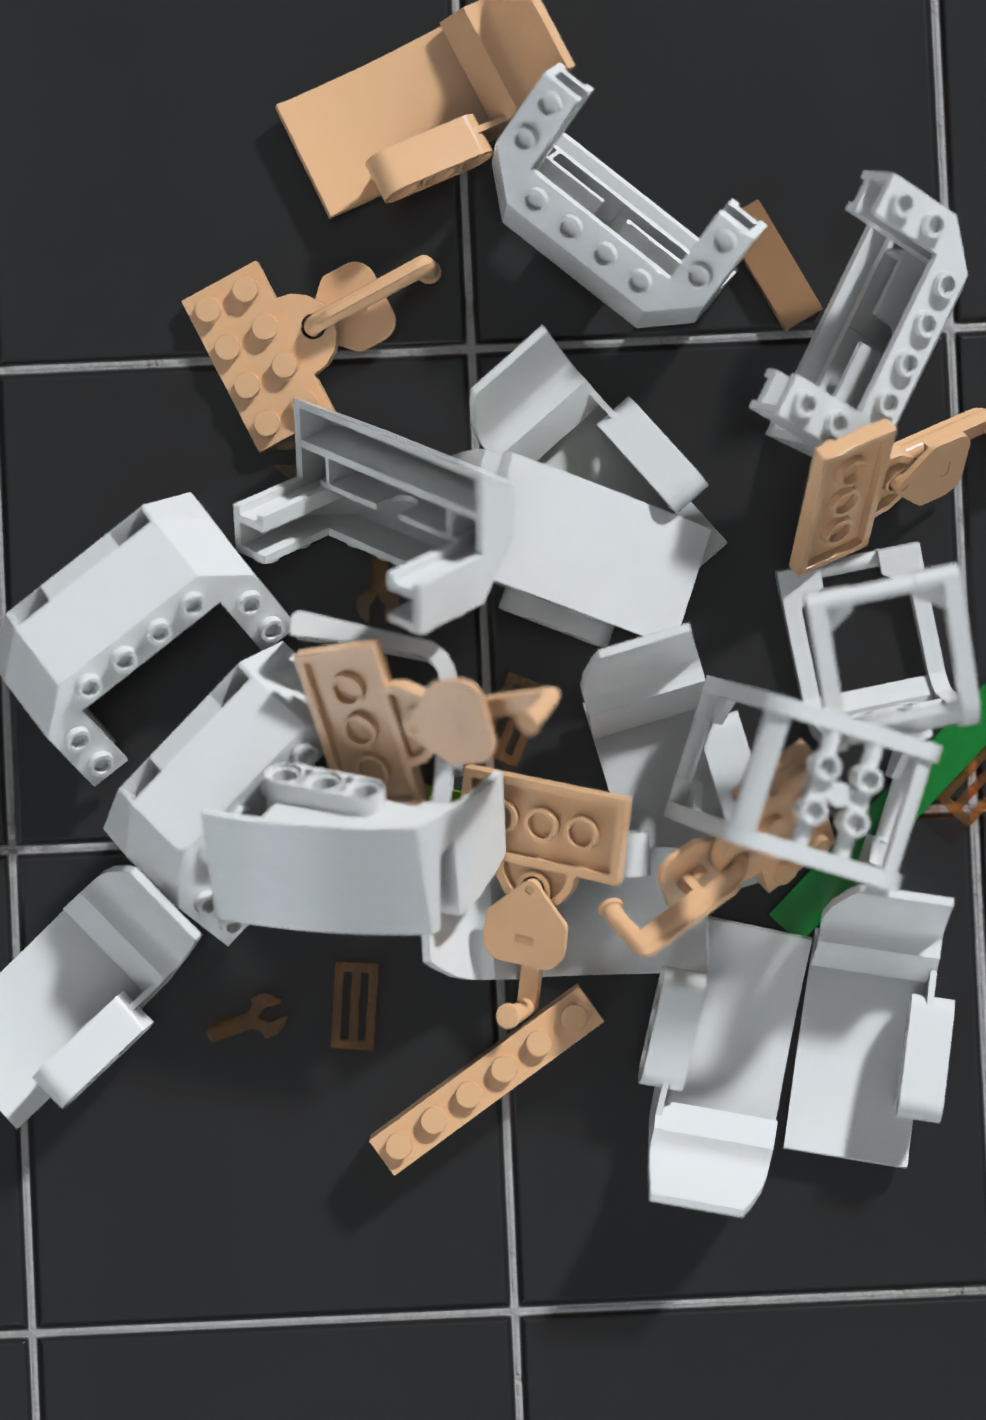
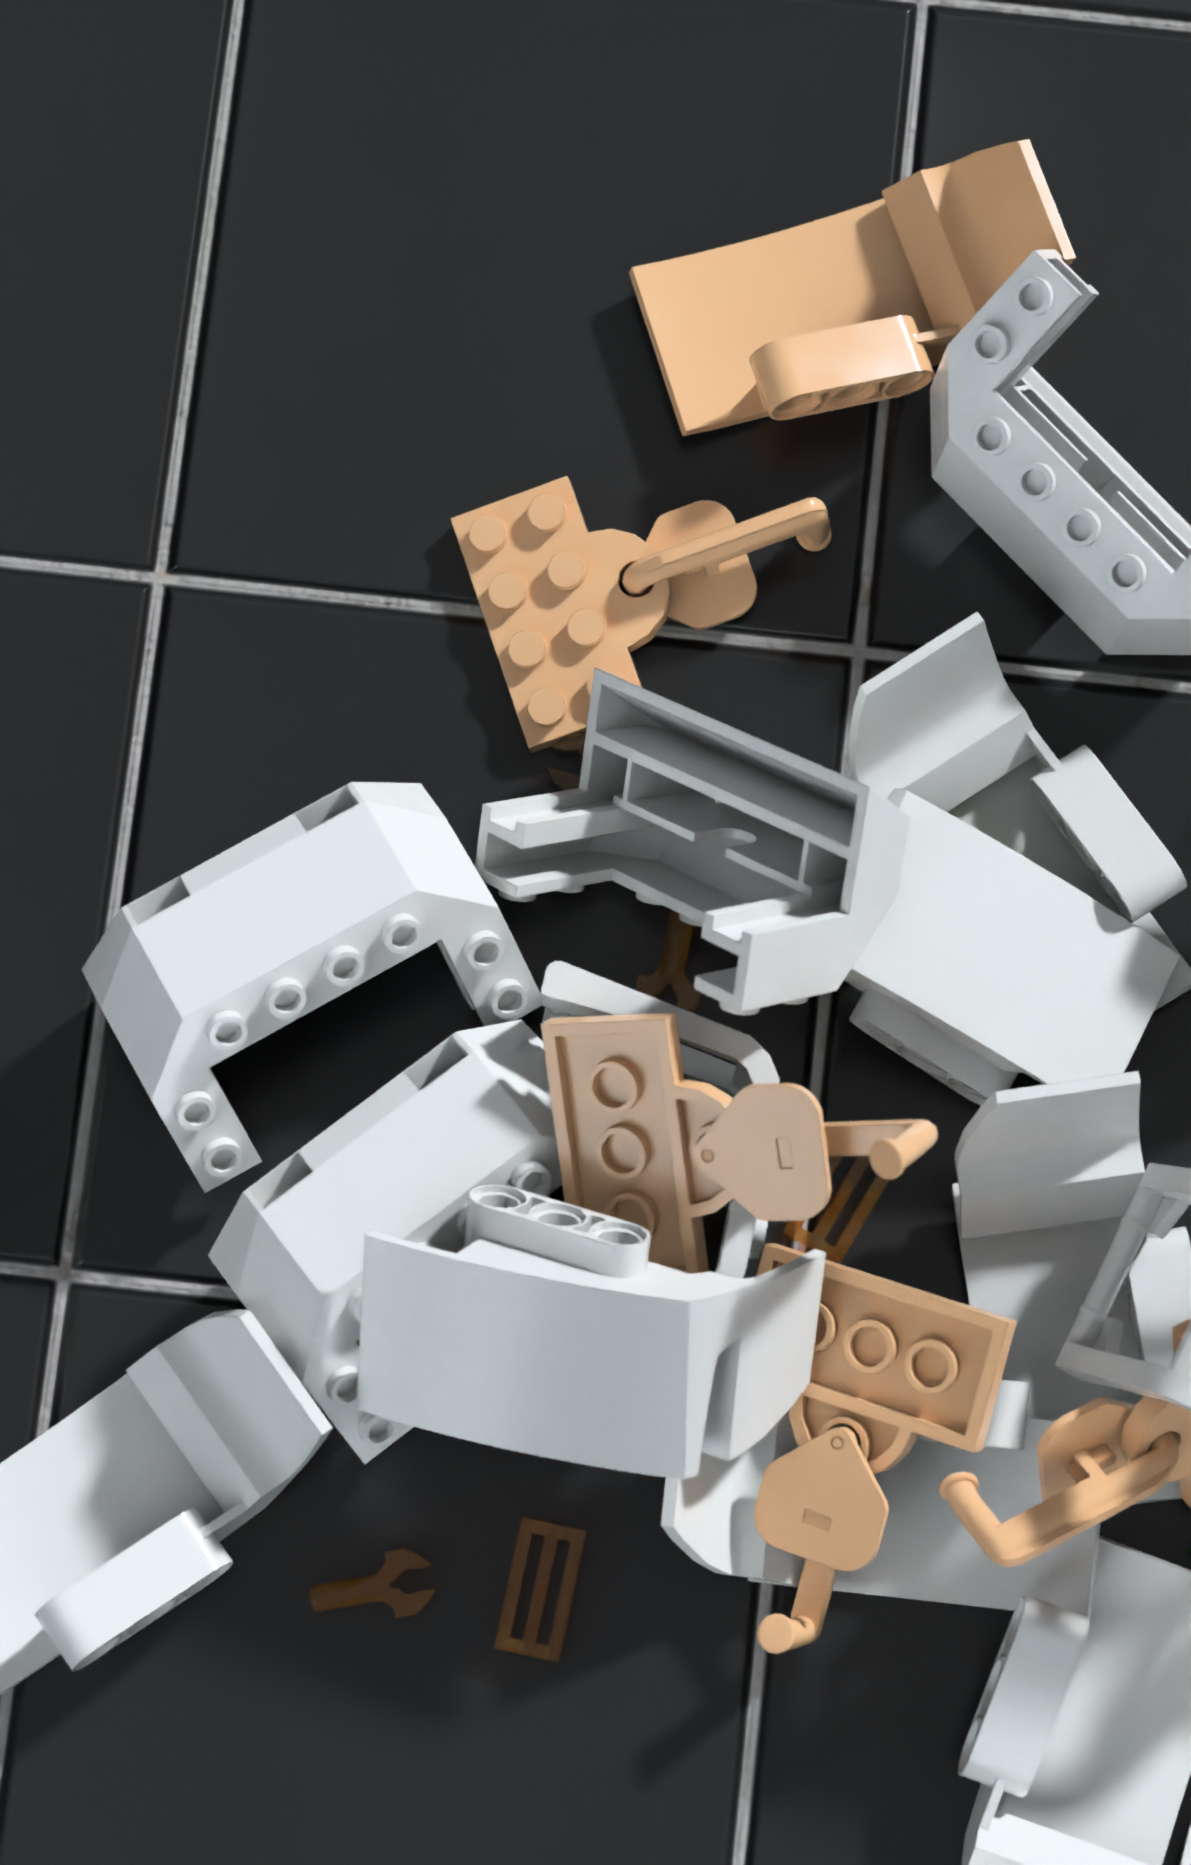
camera: 10 degrees right, 10 degrees down
(485, 1079) = (725, 1732): light nougat brick -> none

